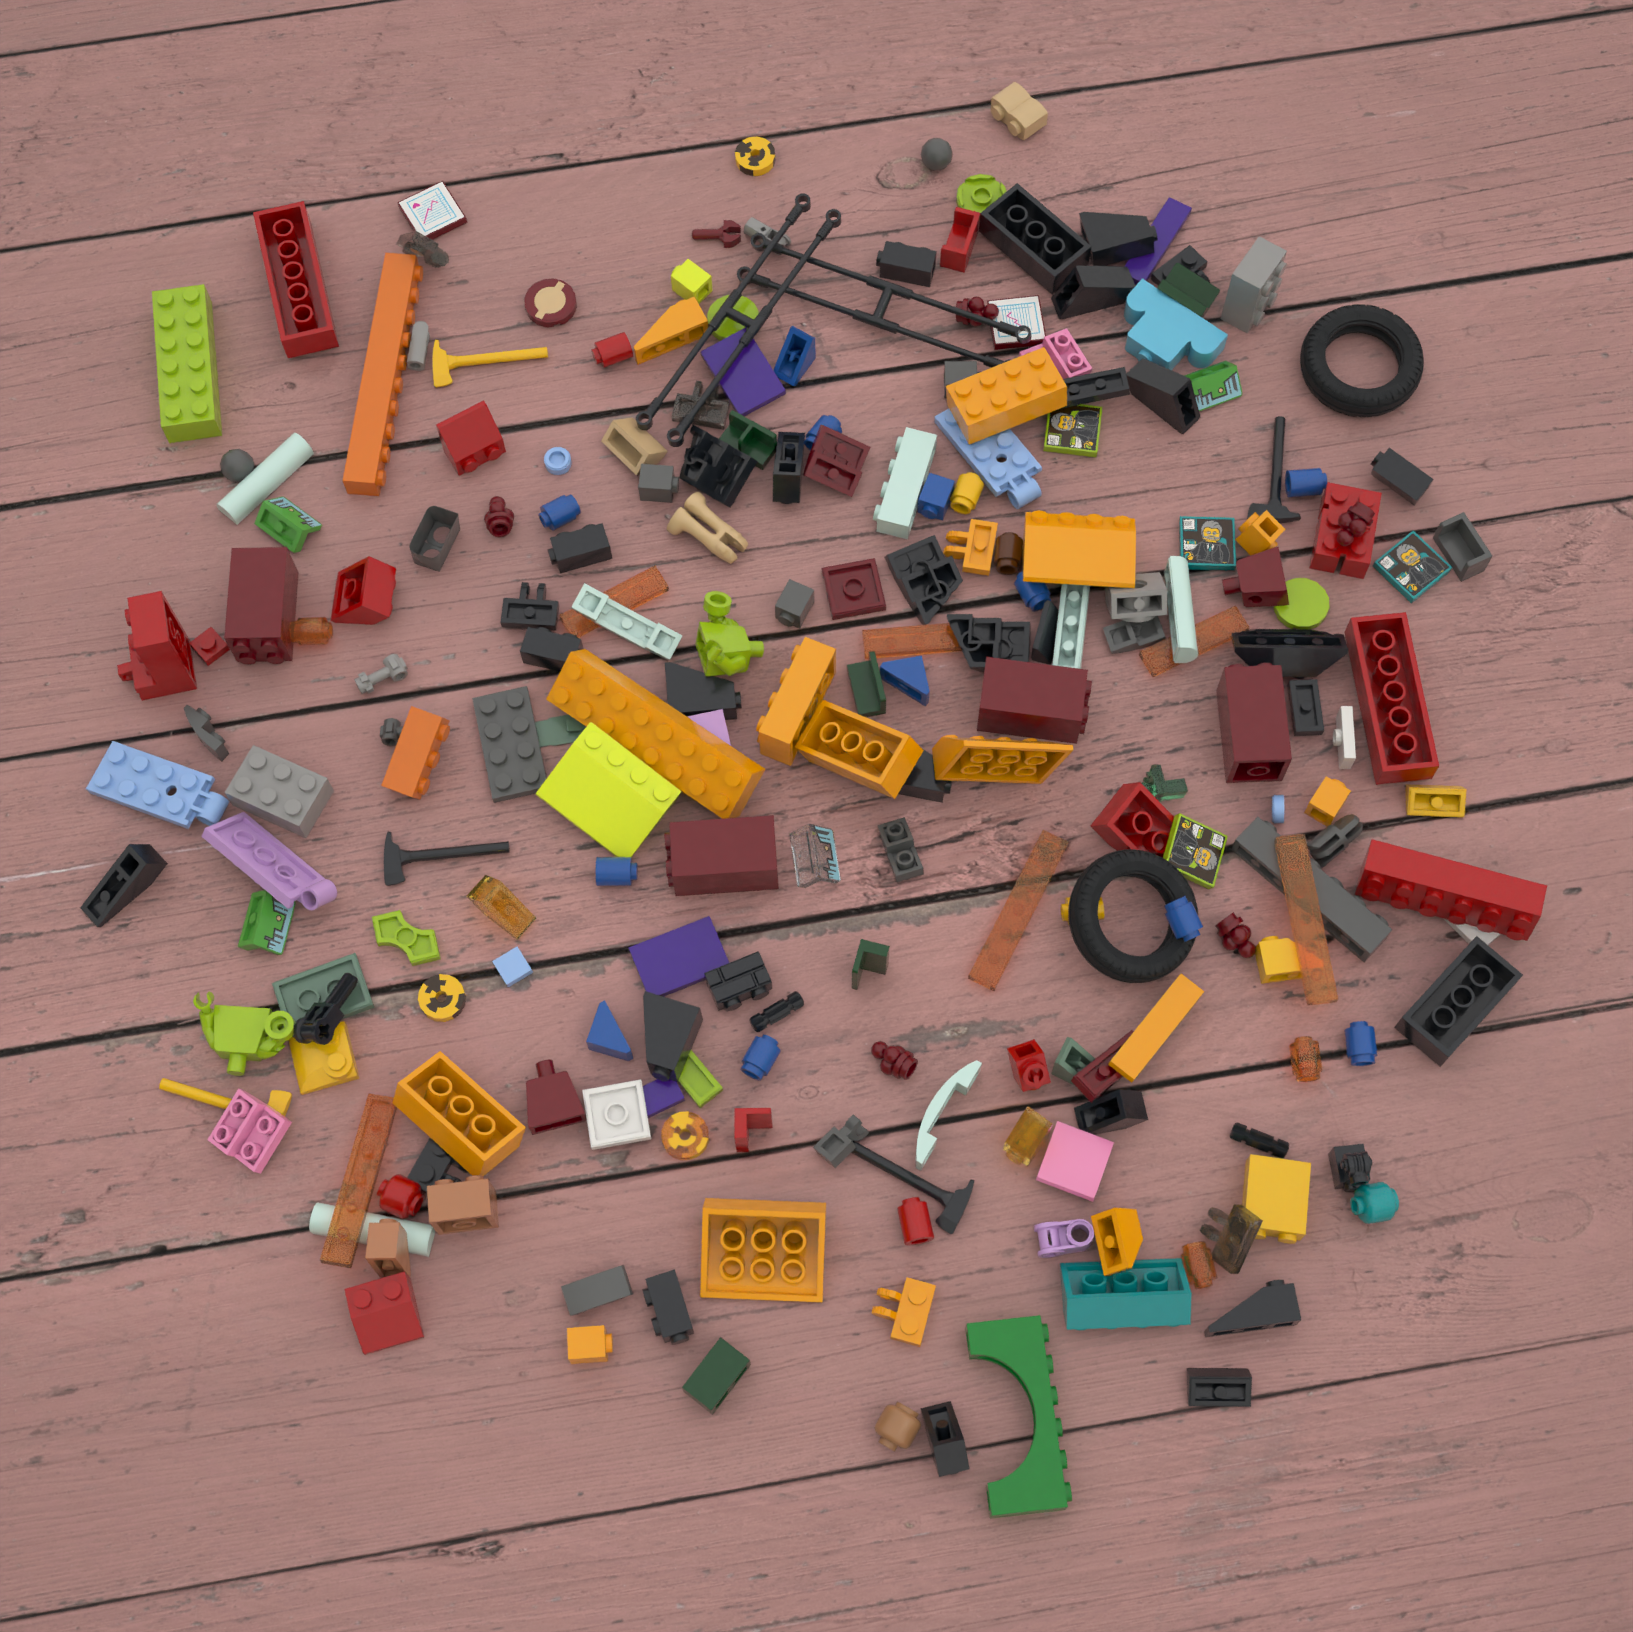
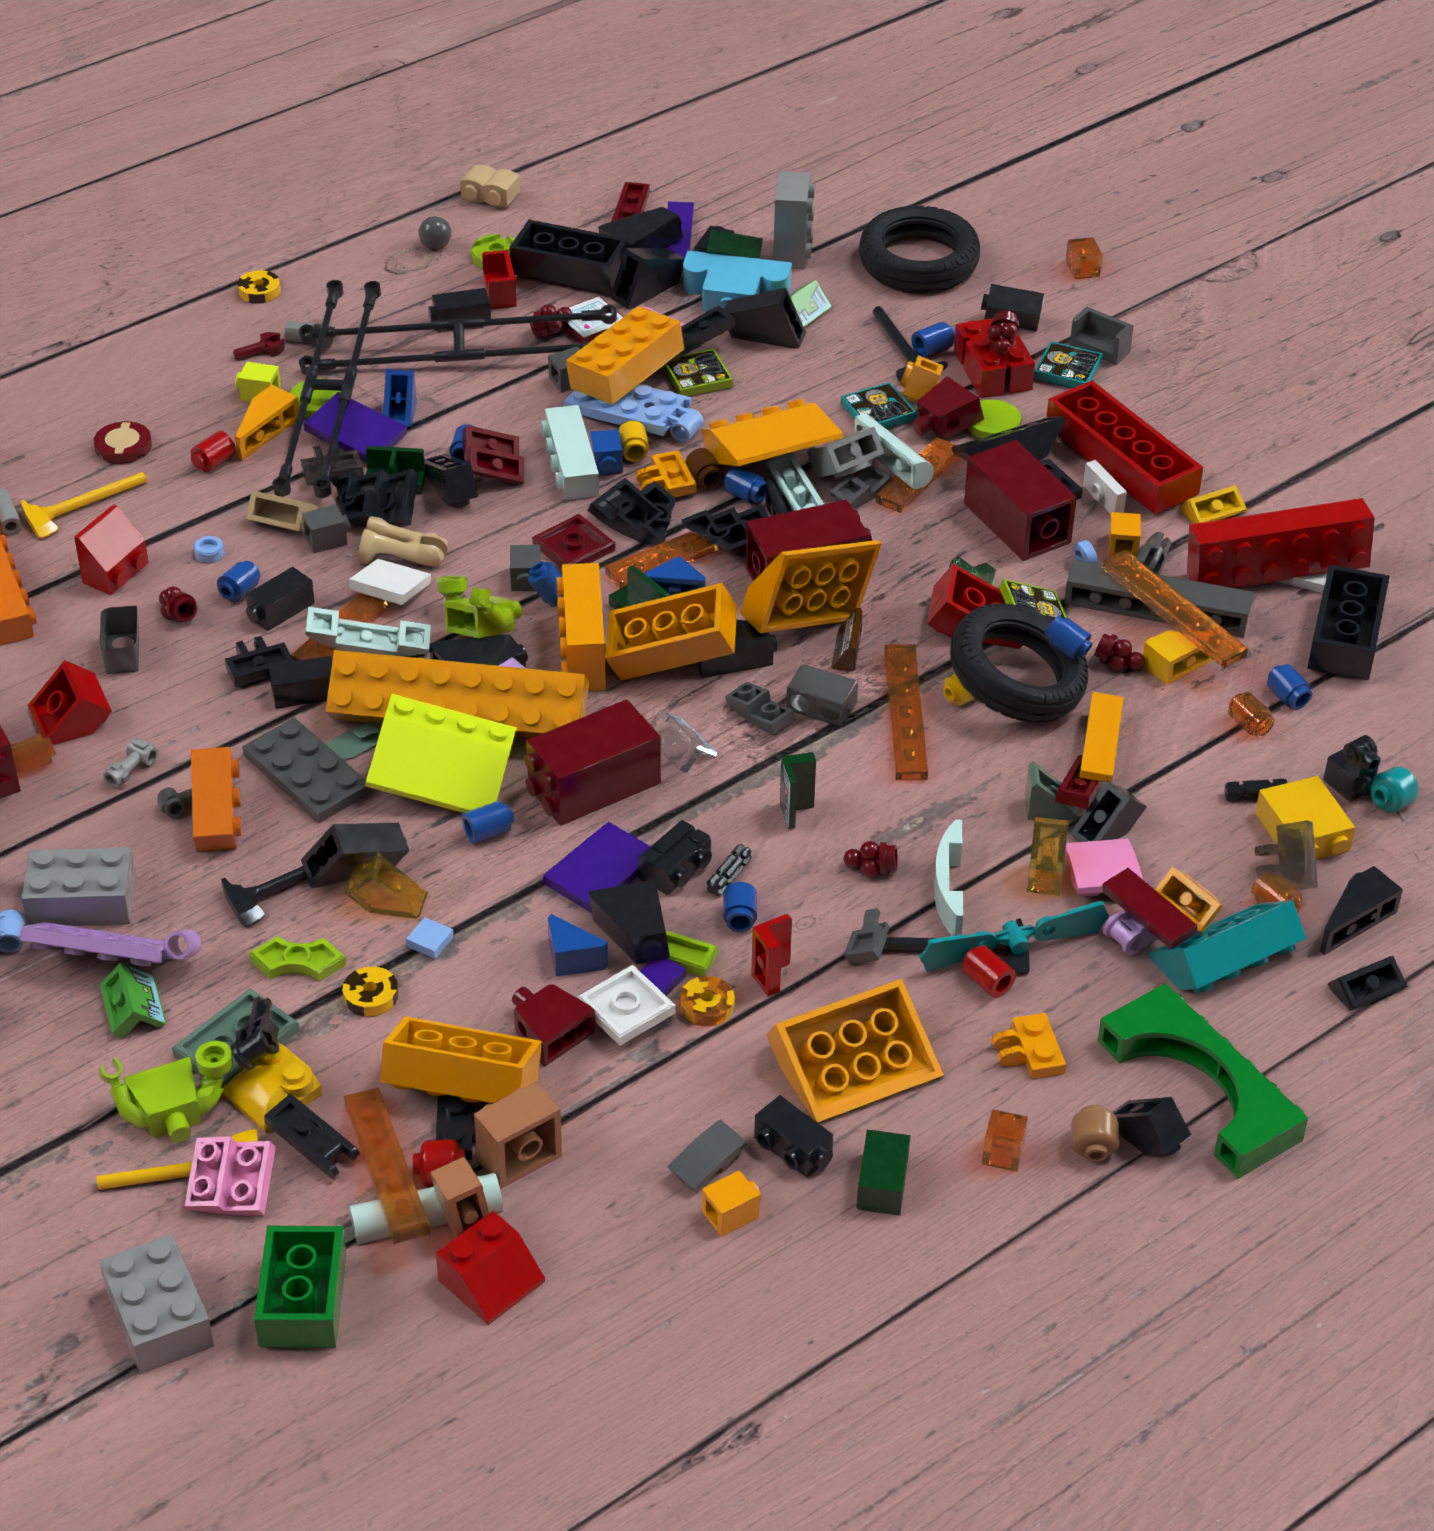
camera: 30 degrees left, 25 degrees down
(142, 1221) = (156, 1303): none -> light grey brick
(243, 1262) = (300, 1286): none -> green brick
(324, 1119) = (309, 1134): none -> black hinge
(495, 860) = (349, 846): none -> black slope
(677, 568) = (389, 581): none -> white tile
(796, 629) = (544, 581): none -> blue brick
(824, 1396) = (1004, 1140): none -> clear orange brick
(954, 864) = (822, 695): none -> dark grey piece
(955, 1200) = (1075, 922): none -> teal piece
(1015, 812) = (848, 642): none -> reddish brown slope
(1029, 1065) = (1007, 809): red brick -> none
(1073, 1236) = (1149, 908): none -> dark red tile
(1133, 186) = (632, 200): none -> dark red tile
(1511, 436) = (1084, 258): none -> clear orange brick

